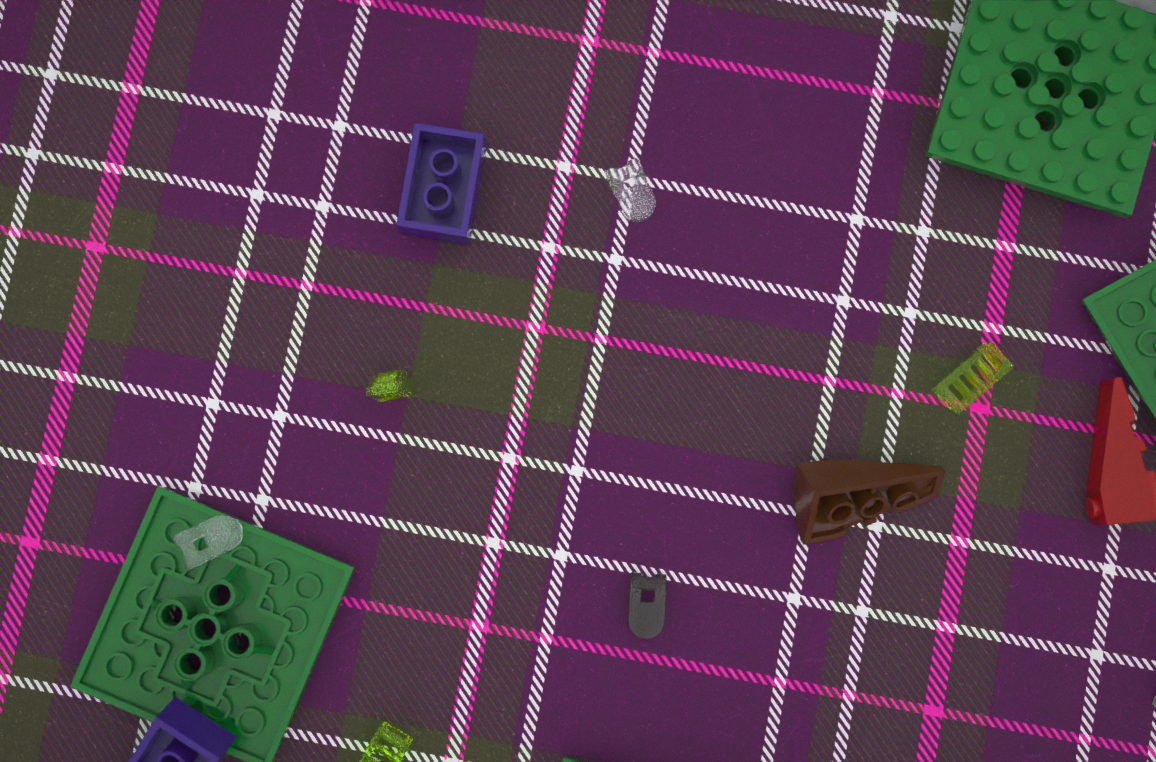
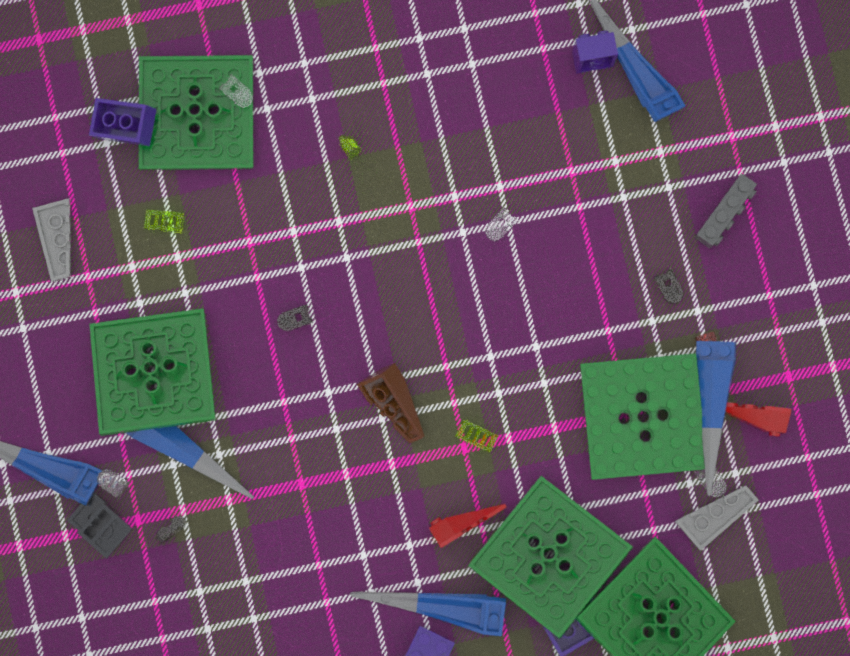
camera: 70 degrees right, 0 degrees up
(442, 183) = (461, 128): dark purple brick -> none

